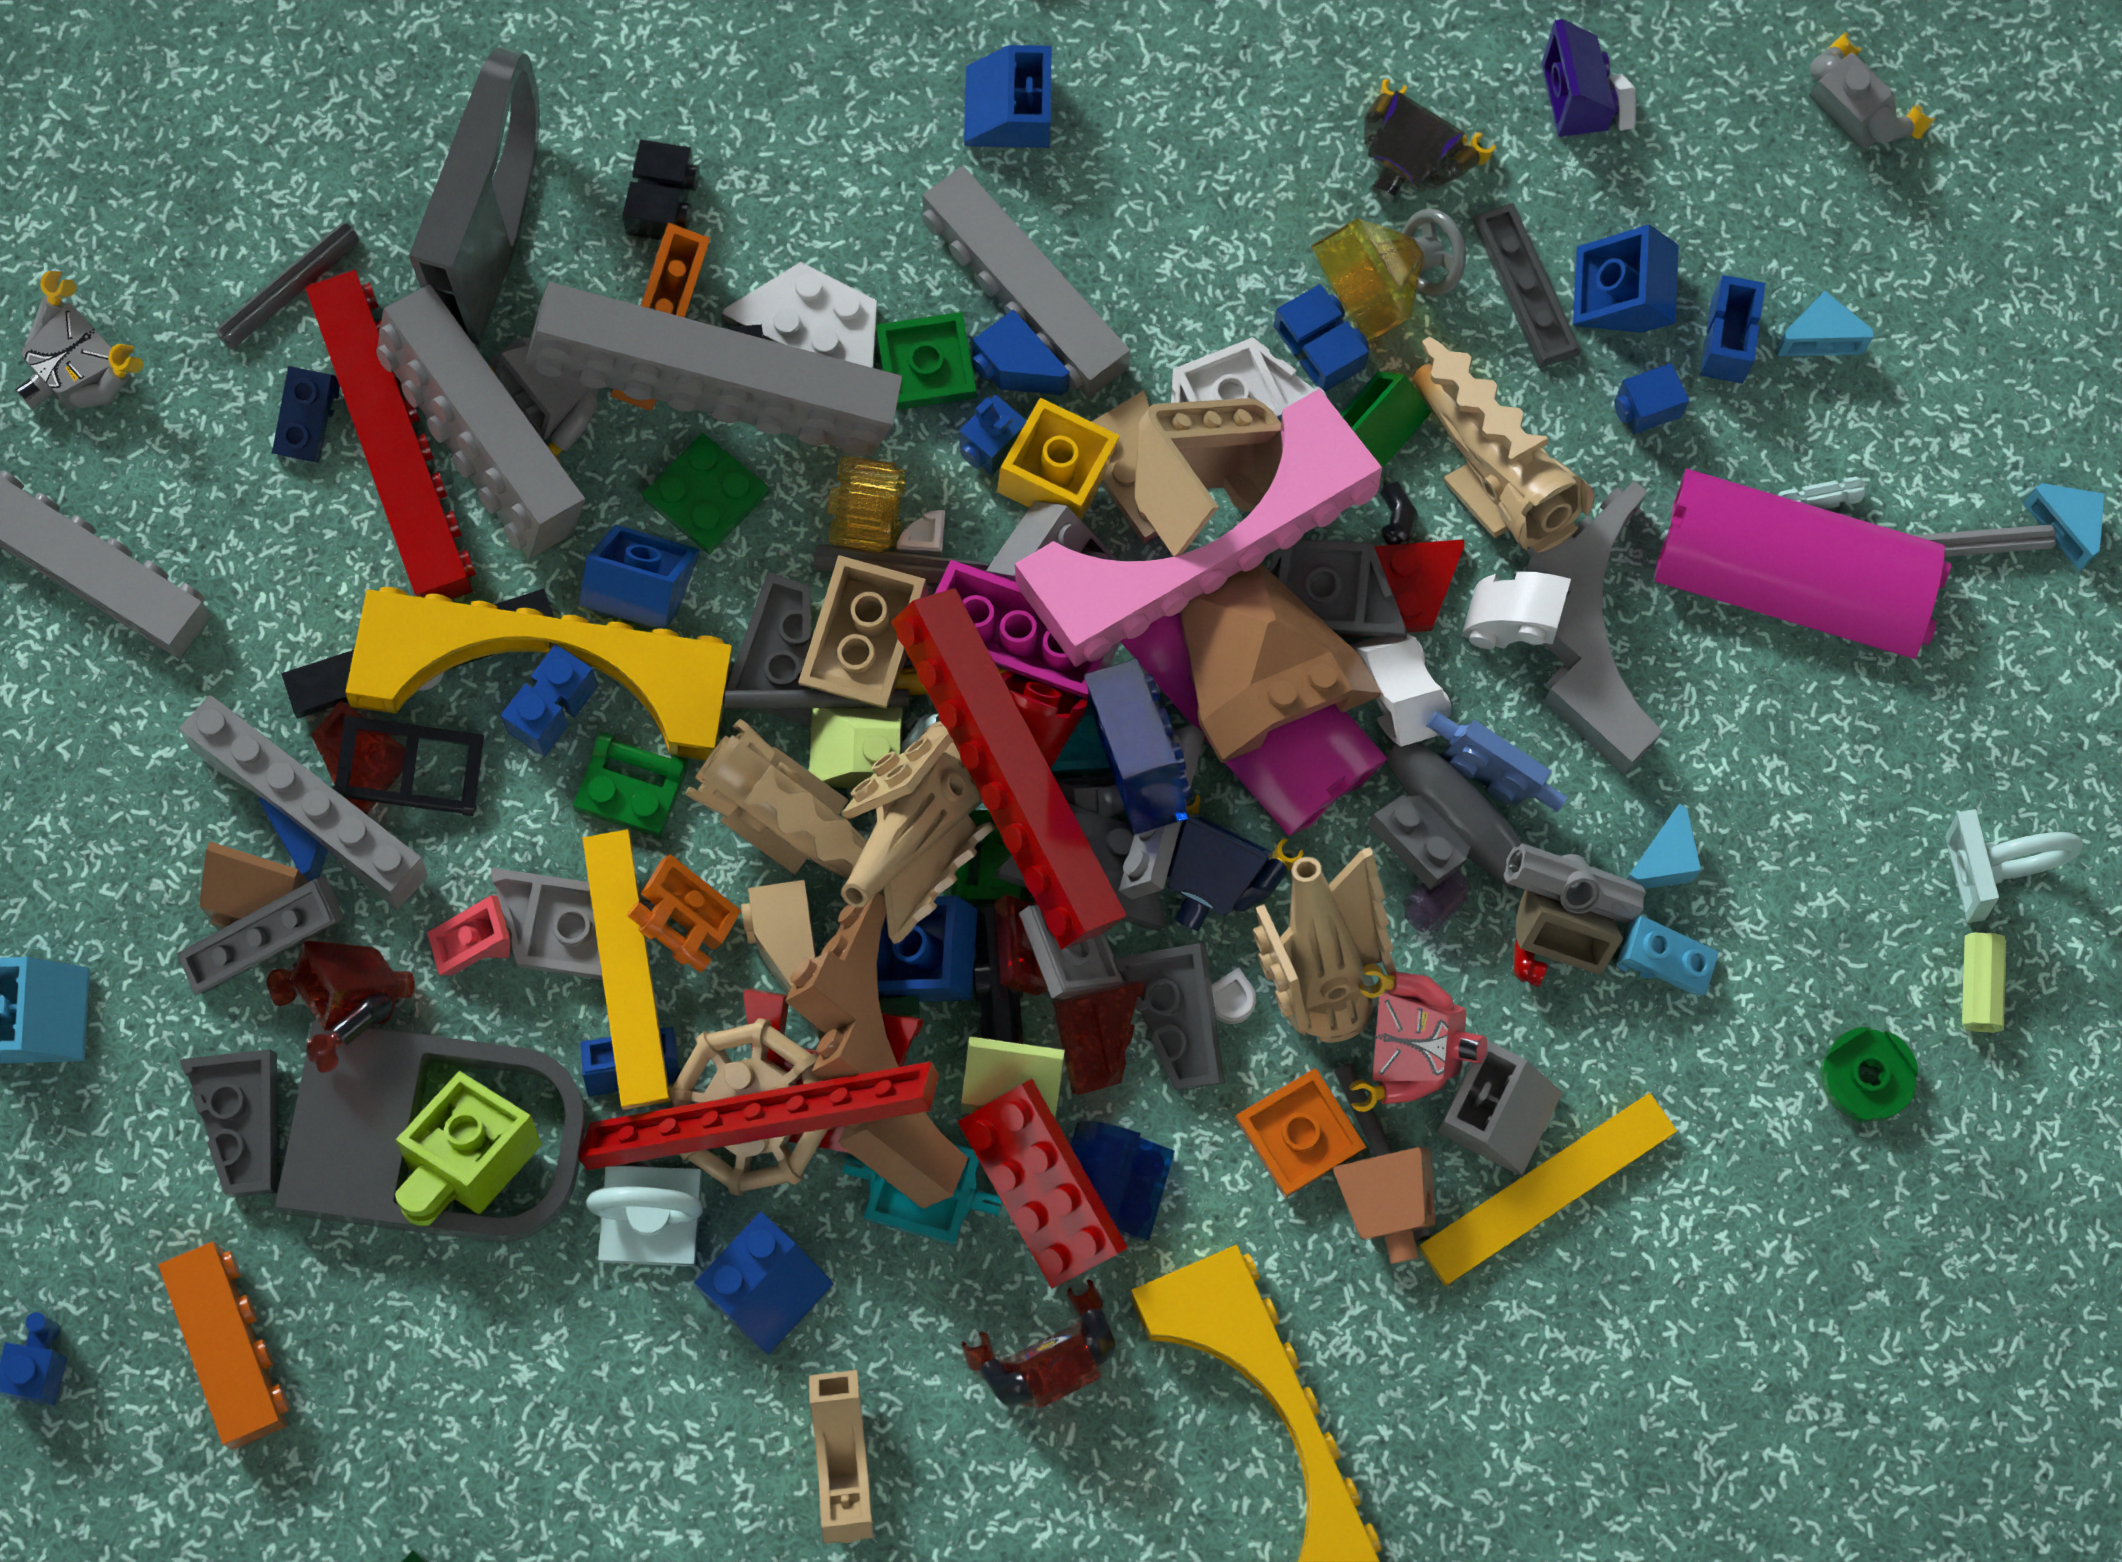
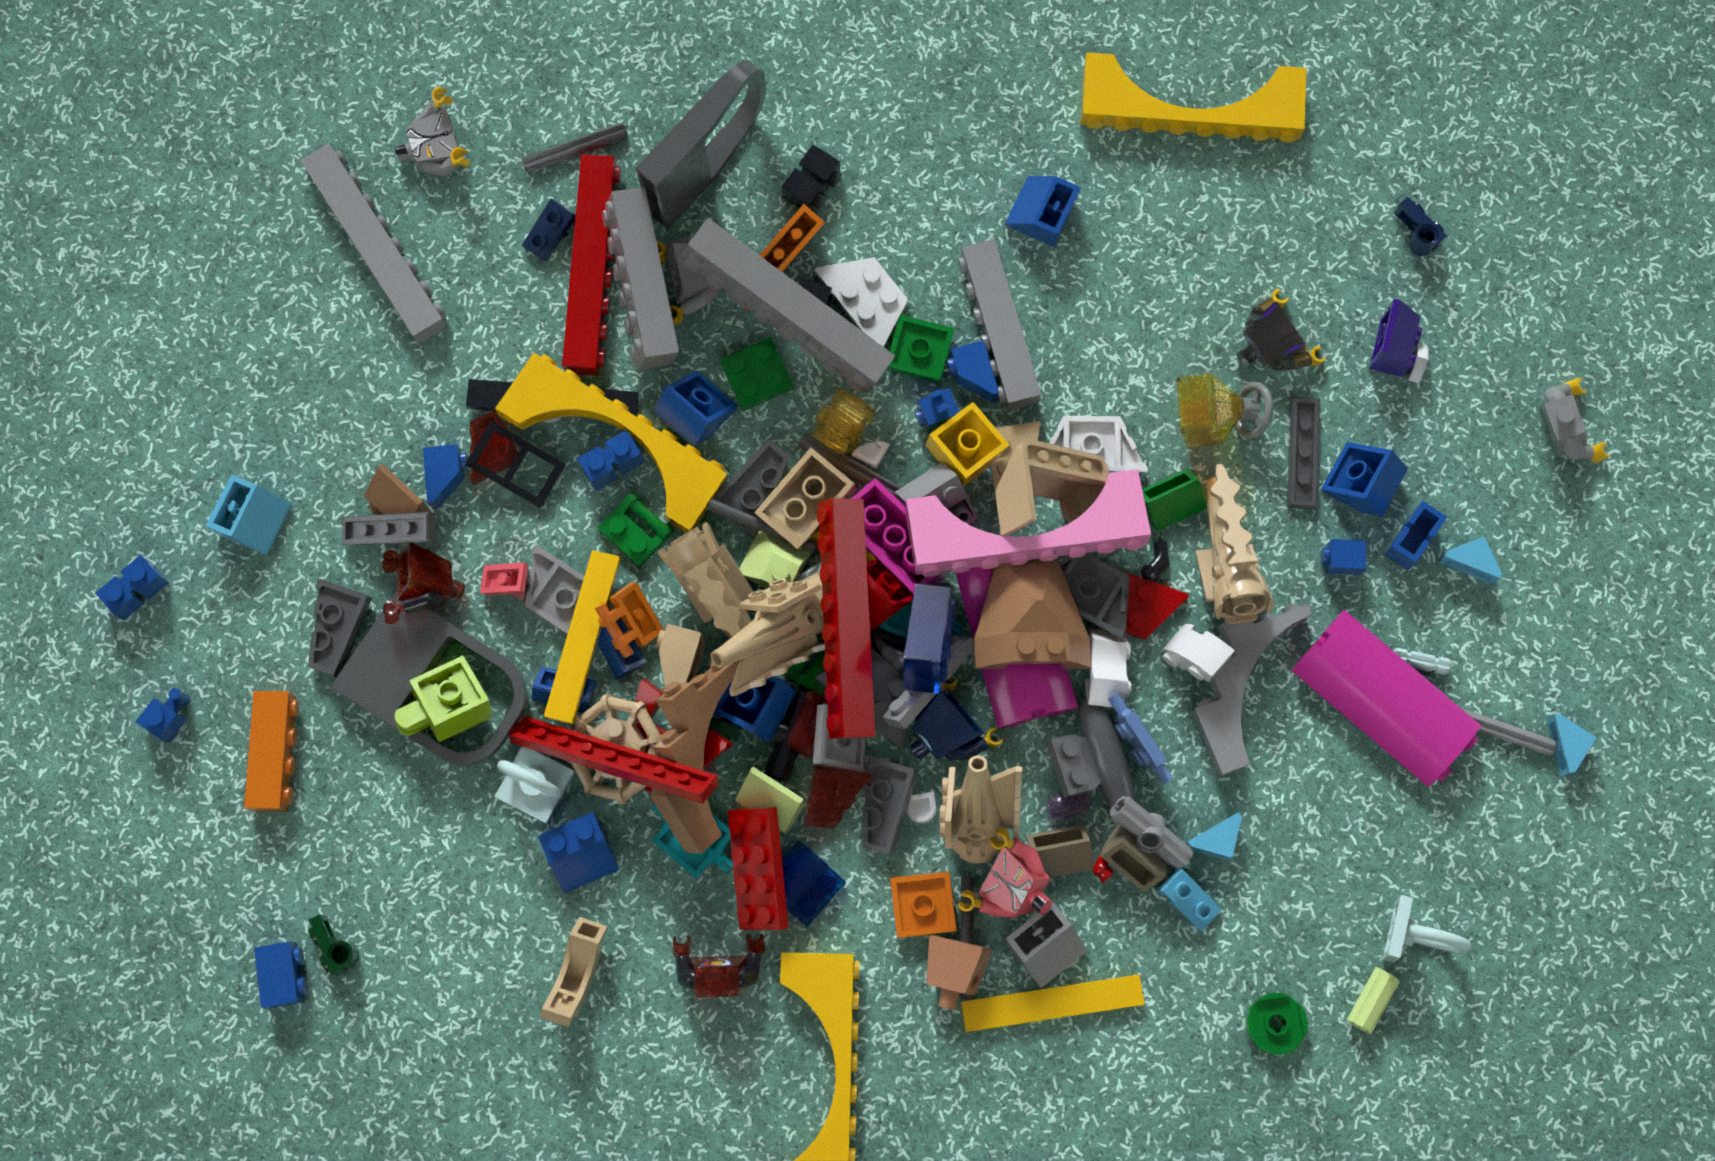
camera: 30 degrees right, 5 degrees up
(333, 821) = (447, 461): light grey arch -> none
(684, 980) = (619, 665): none -> blue slope
(1316, 327) = (1163, 439): blue piece -> none
(1465, 964) = (1063, 850): none -> dark tan brick

